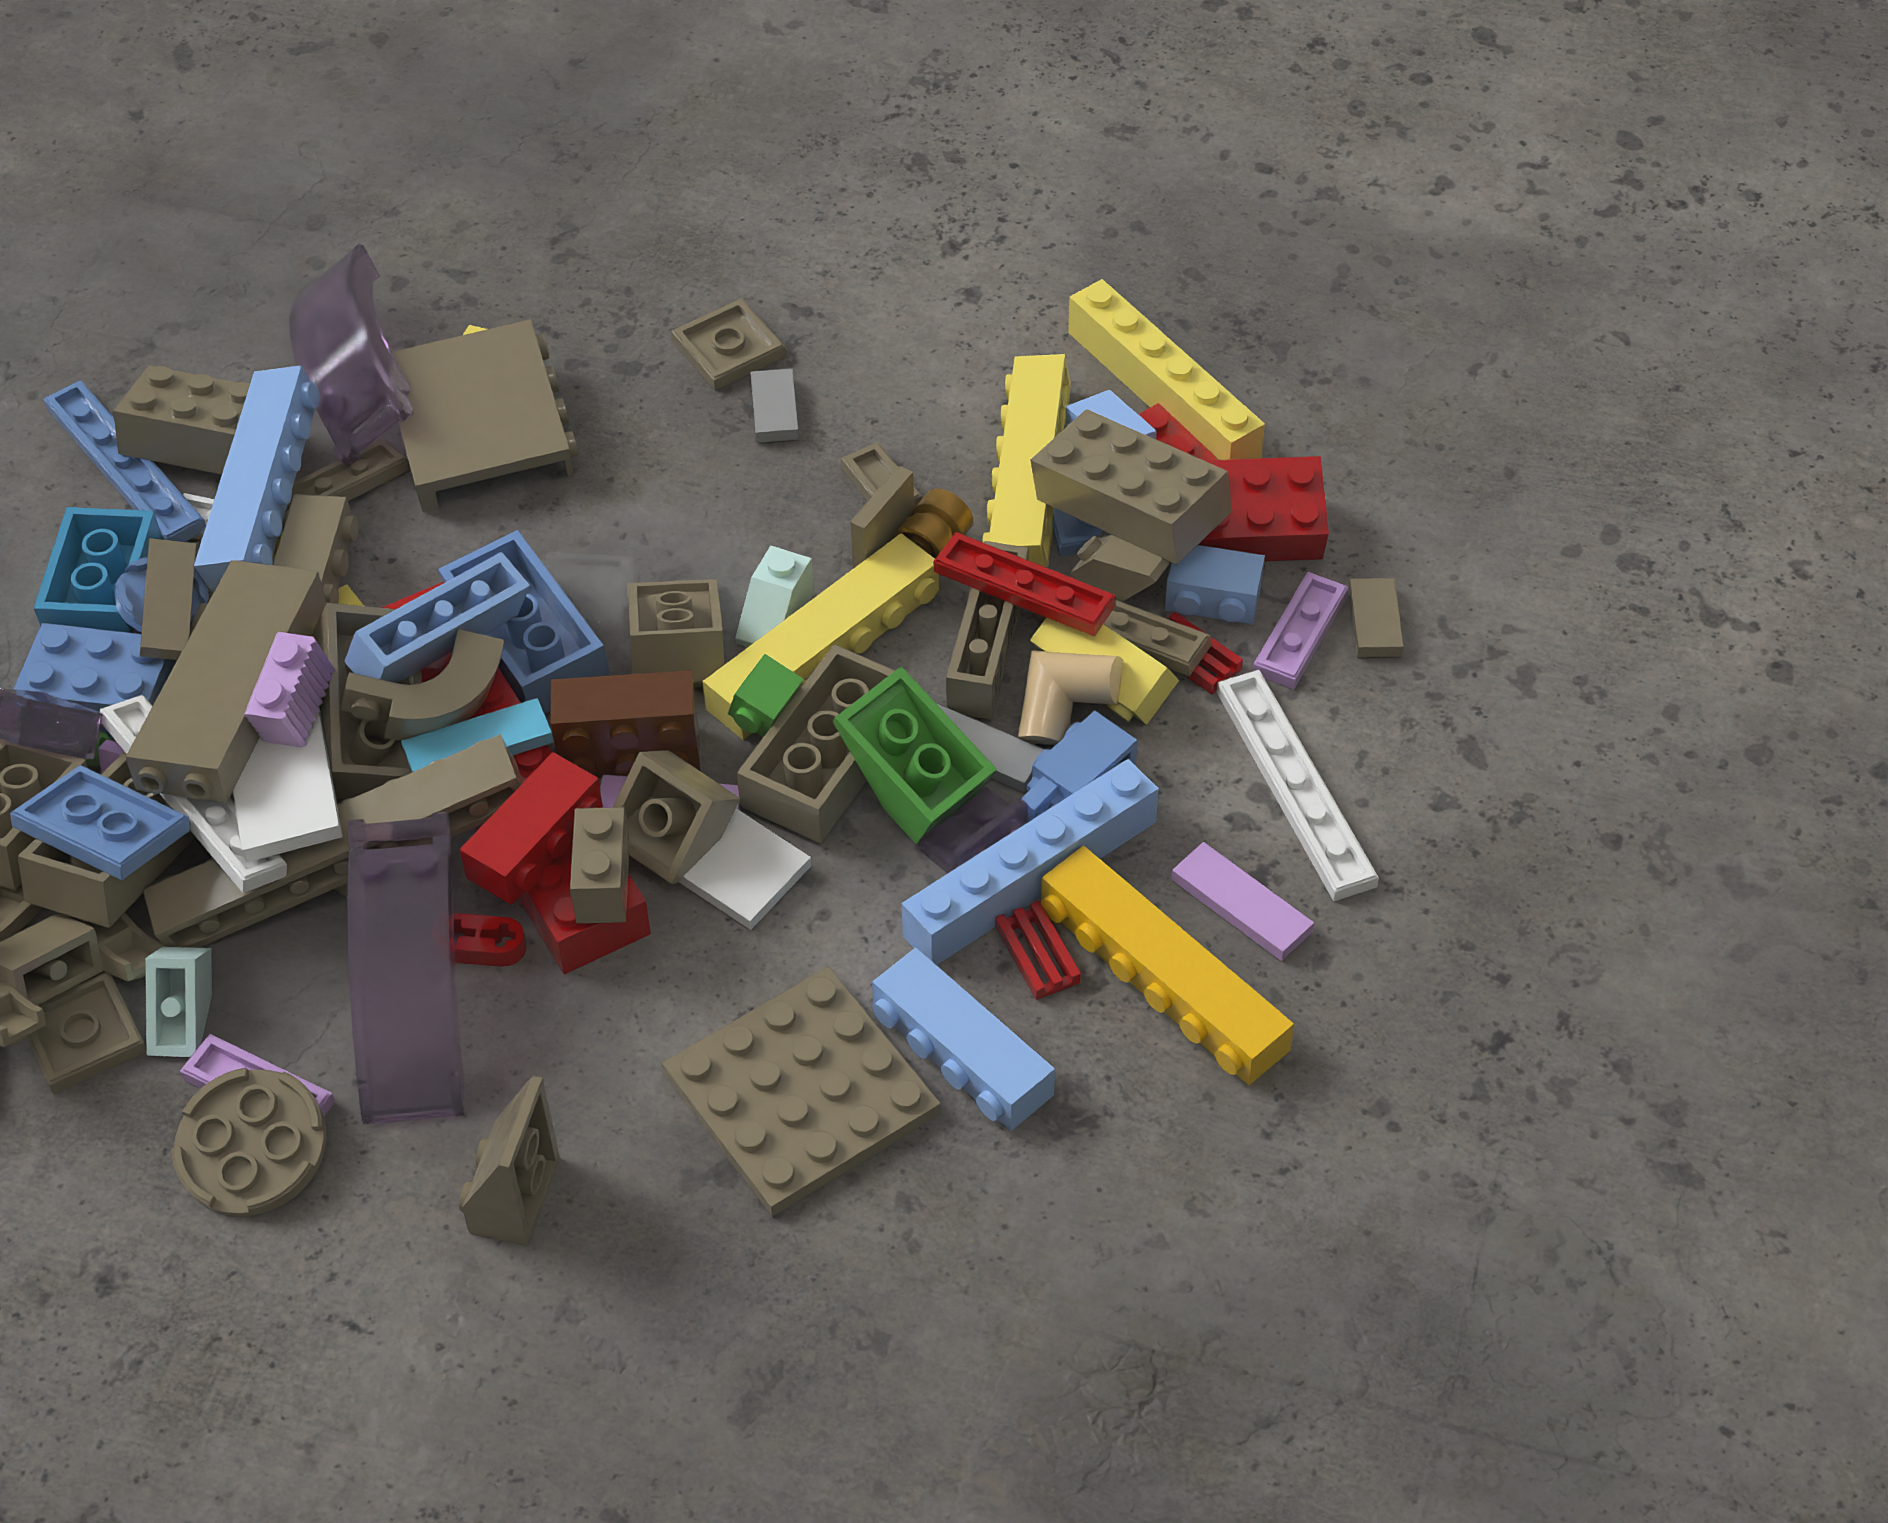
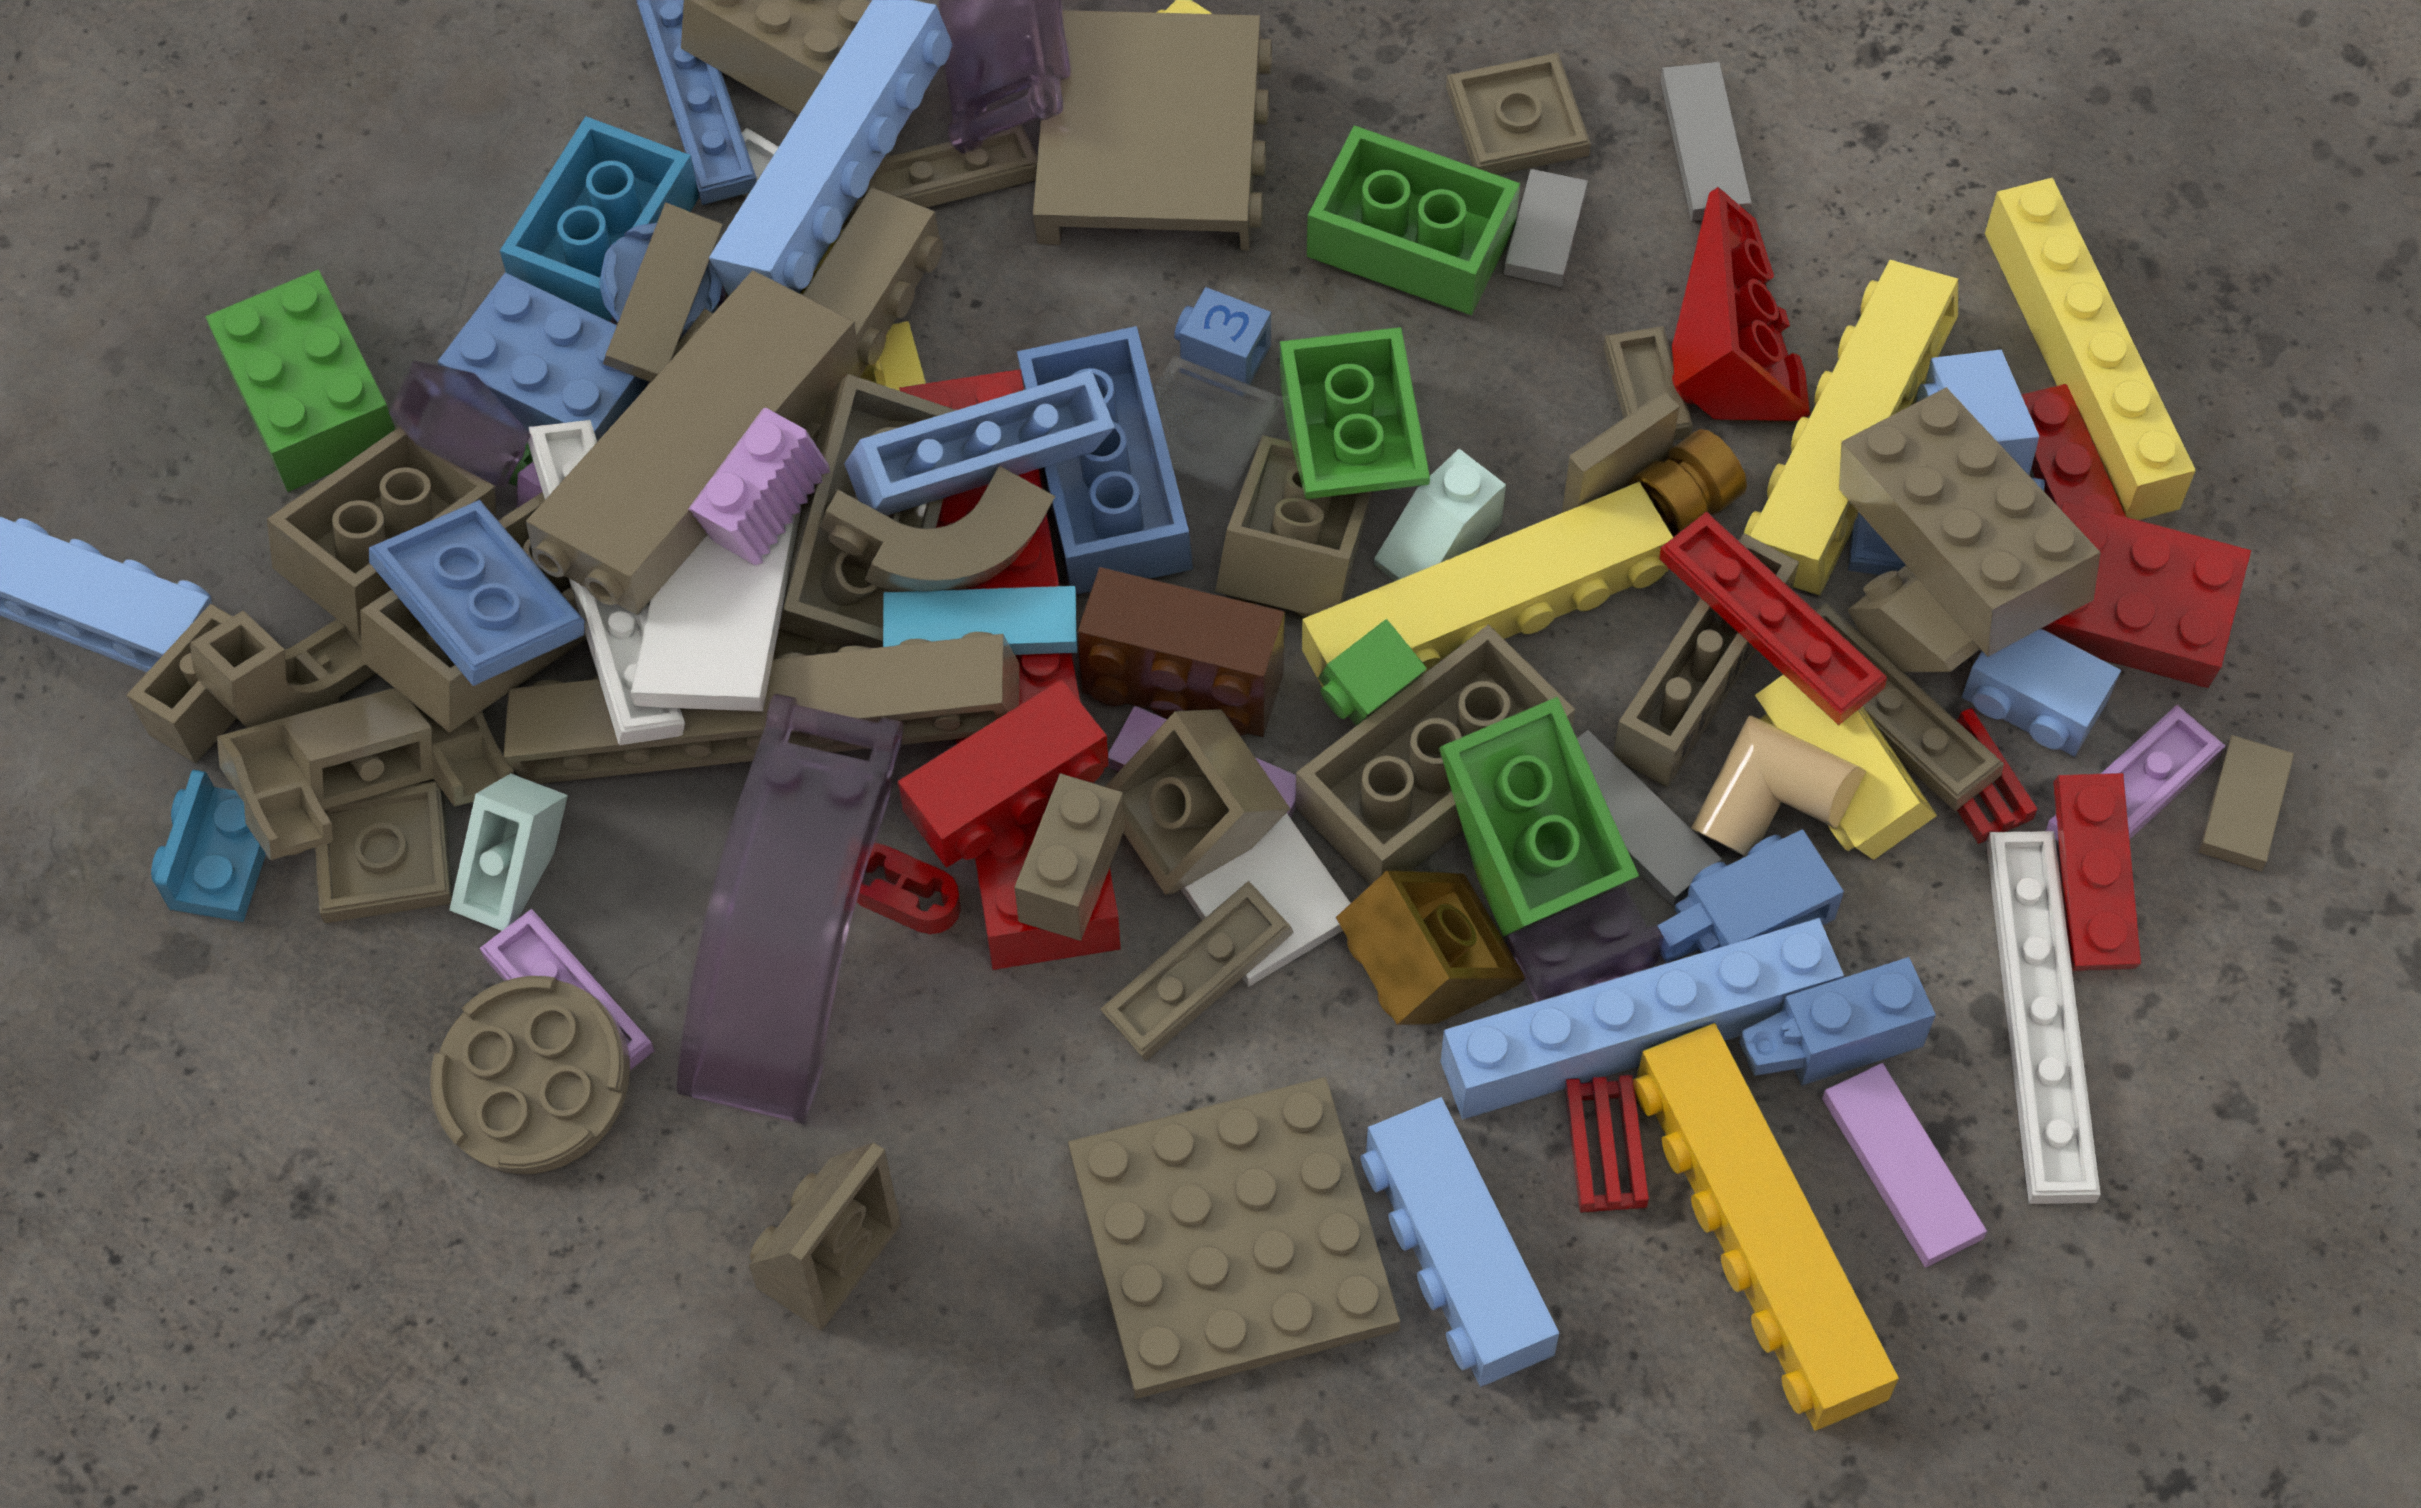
camera: 20 degrees right, 10 degrees up
(578, 526) = (1224, 335): none -> medium blue brick
(682, 420) = (1412, 220): none -> bright green brick
(686, 544) = (1352, 413): none -> bright green slope
(711, 926) = (1197, 970): none -> dark tan tile
(862, 326) = (1704, 135): none -> light grey tile
(866, 862) = (1428, 946): none -> pearl gold slope
(924, 431) = (1730, 328): none -> red wedge
(1169, 823) = (1842, 1024): none -> medium blue hinge
(1297, 683) = (2097, 871): none -> red plate

